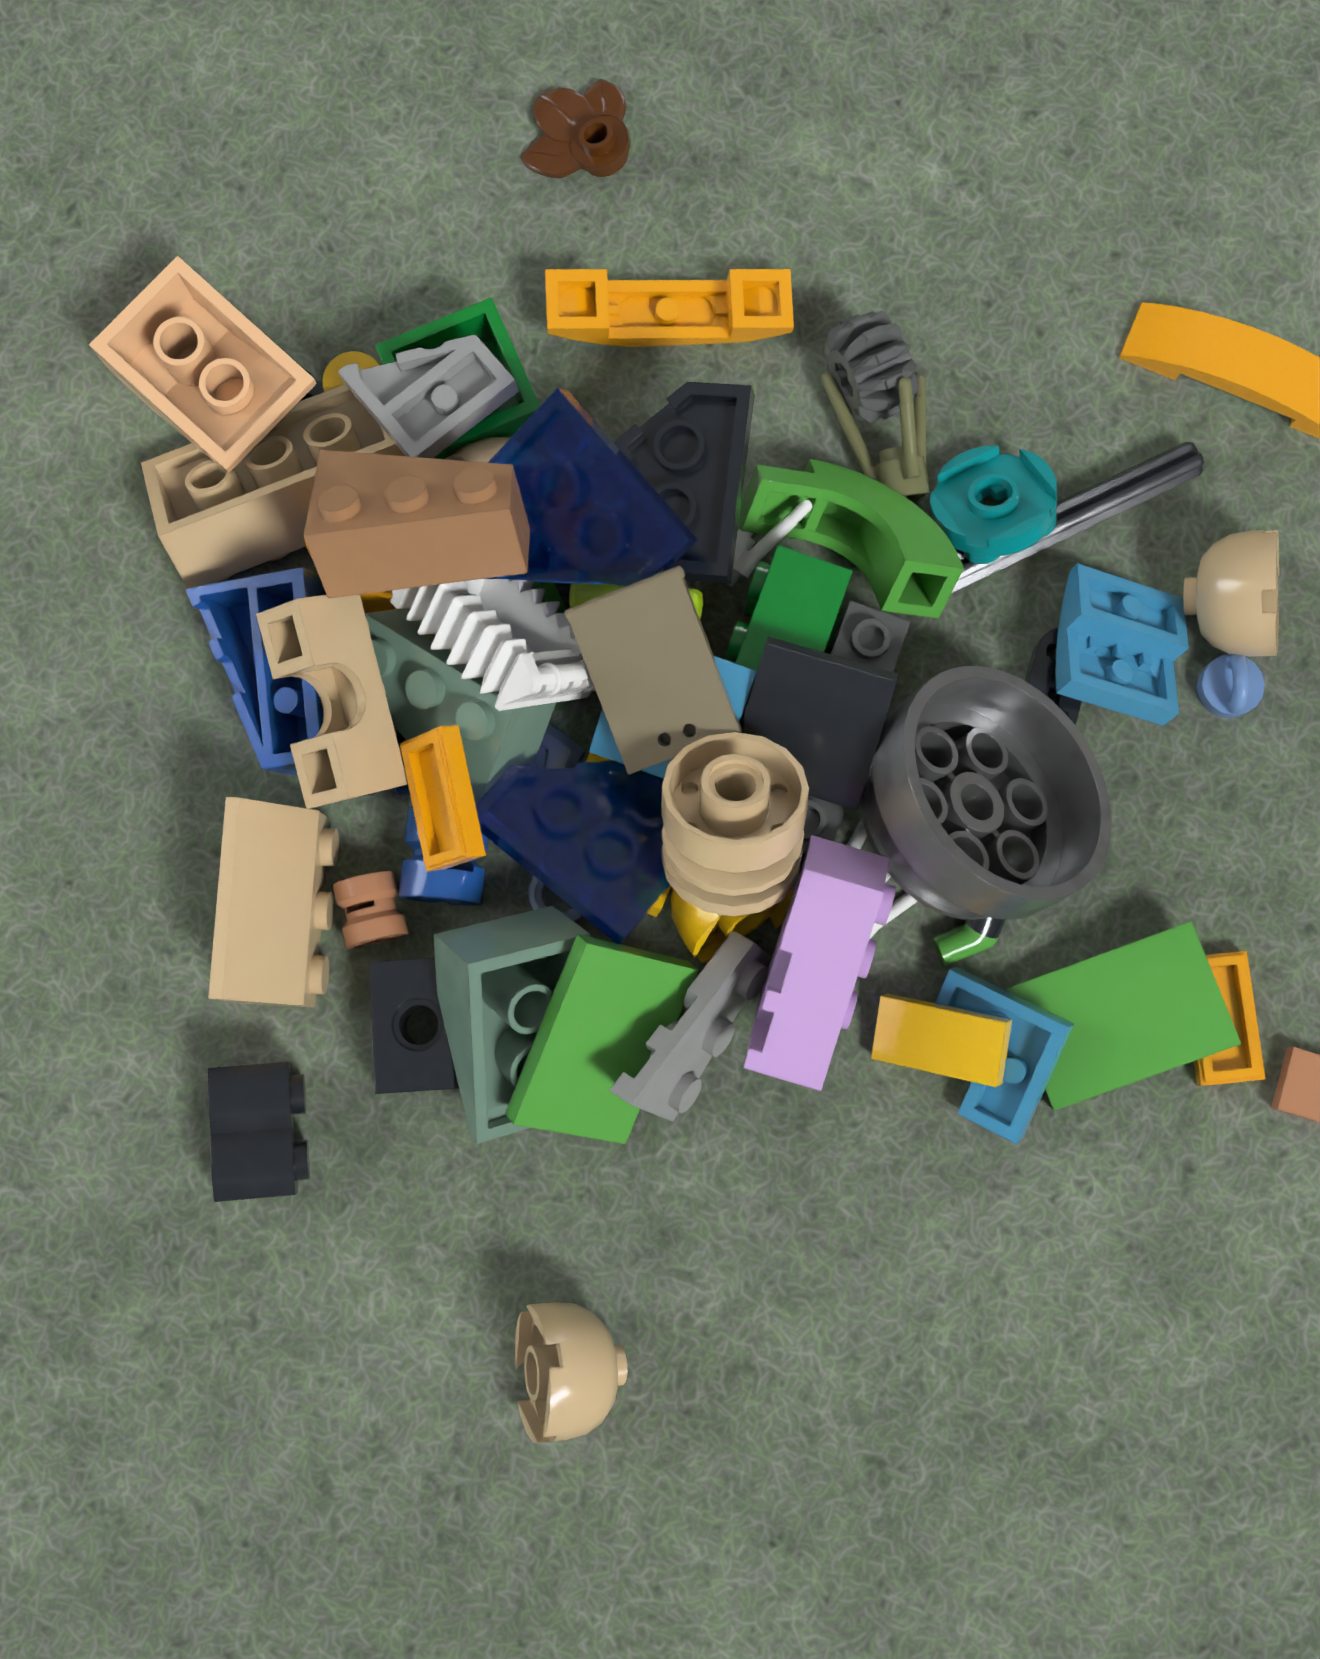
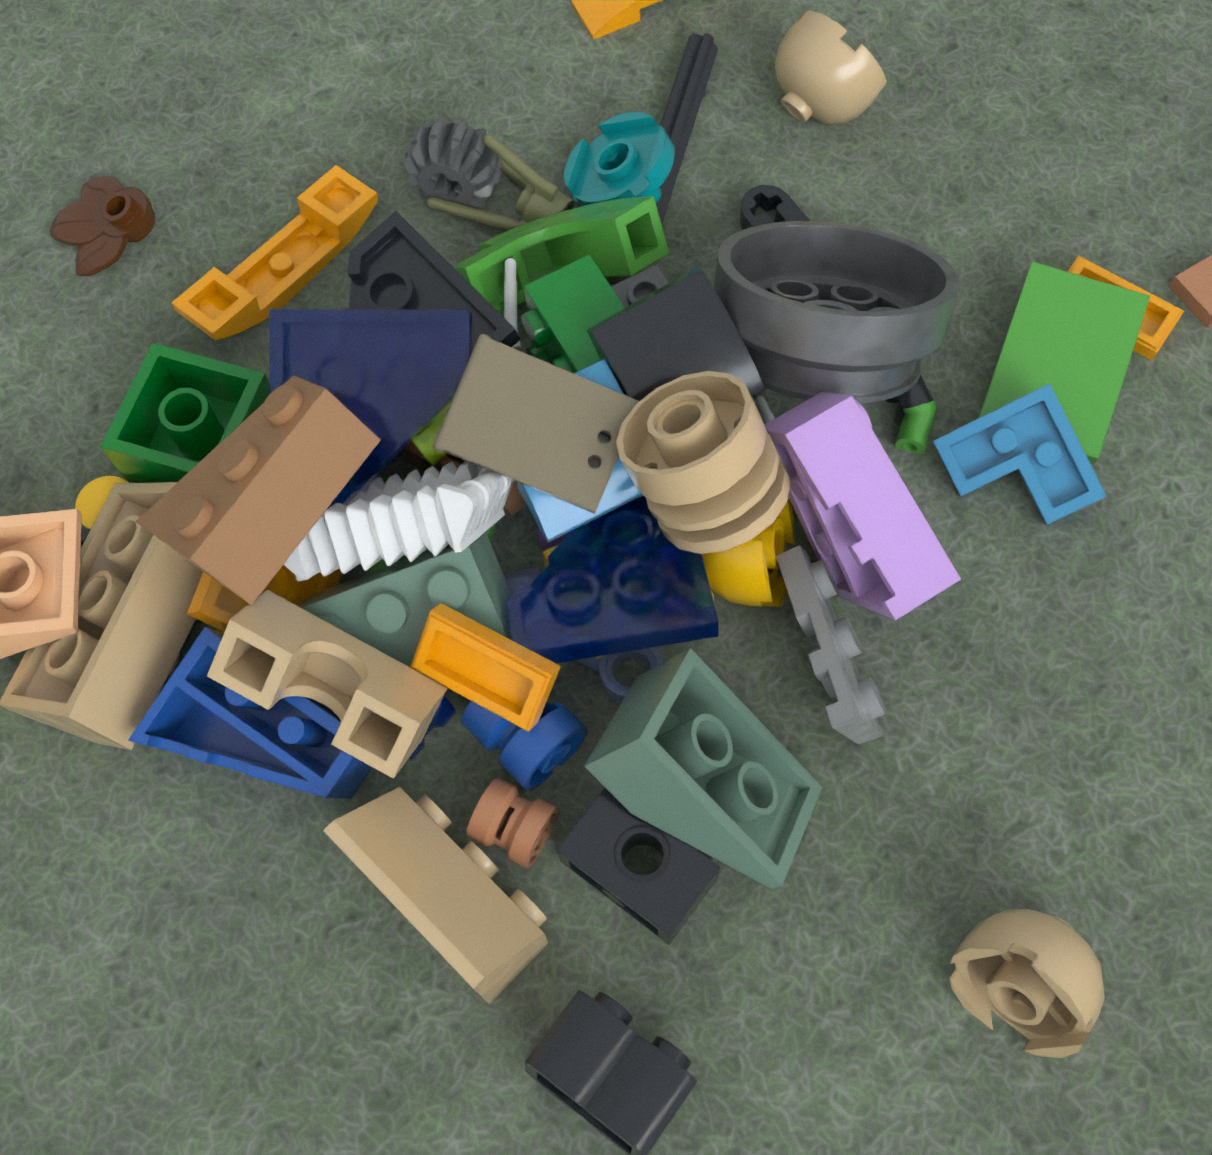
camera: 45 degrees left, 15 degrees down
(432, 393) = (174, 426): light grey wing -> none
(594, 1032) = (778, 720): bright green tile -> none
(941, 1039) = (983, 485): yellow tile -> none
(1120, 645) = (791, 168): dark azure slope -> none
(1230, 686) = (878, 133): medium blue tile -> none

